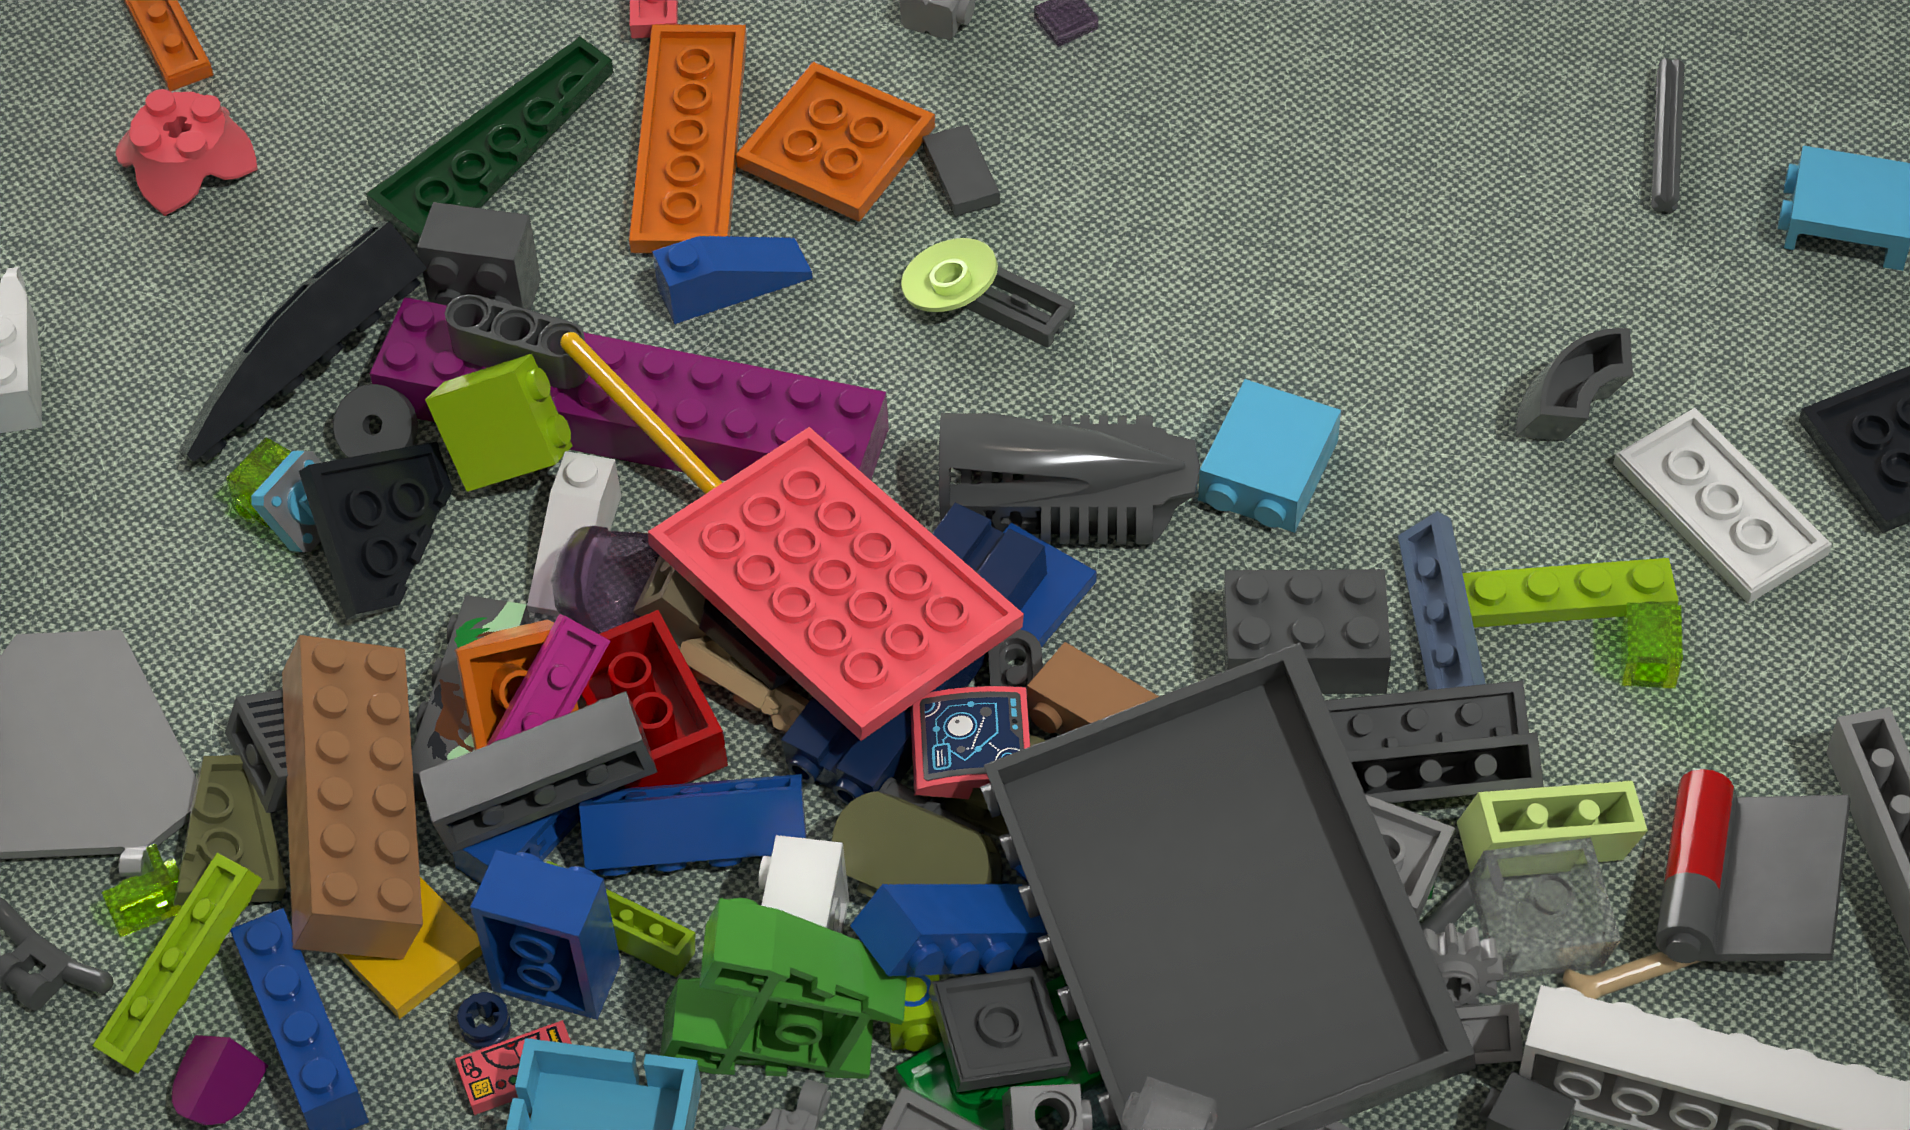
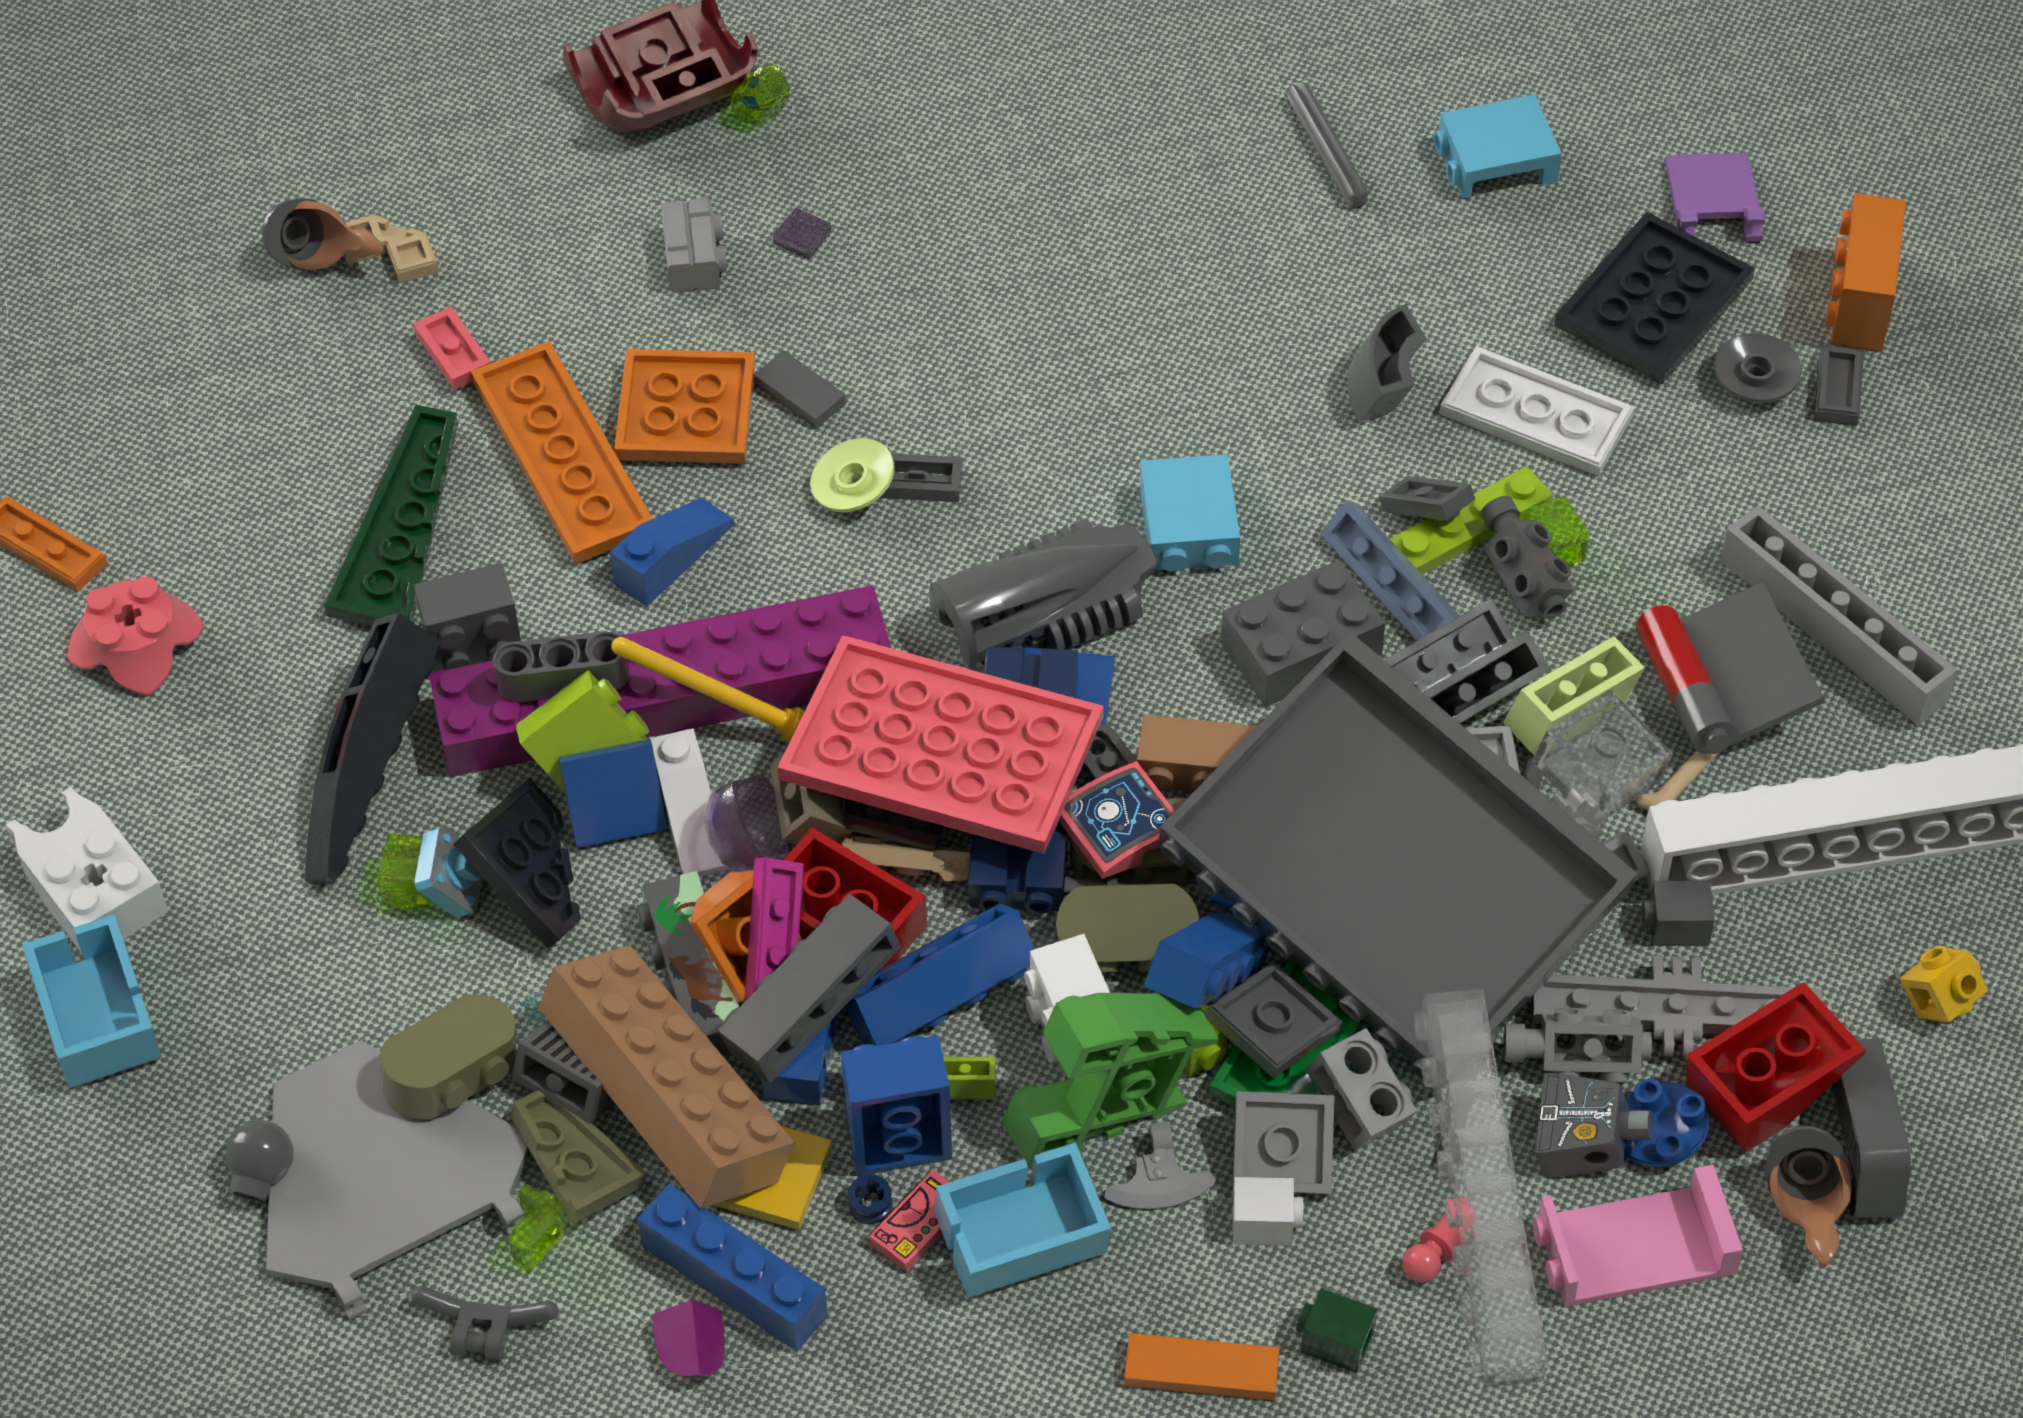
camera: 30 degrees left, 0 degrees up
(174, 681) = (448, 1056): none -> olive brick
(177, 963) = (608, 1264): lime plate -> none
(364, 404) = (462, 766): dark grey piece -> none
(499, 489) = (613, 793): none -> blue tile
(1530, 546) = (1427, 498): none -> dark grey plate
(1595, 658) = (1525, 561): none -> dark grey brick

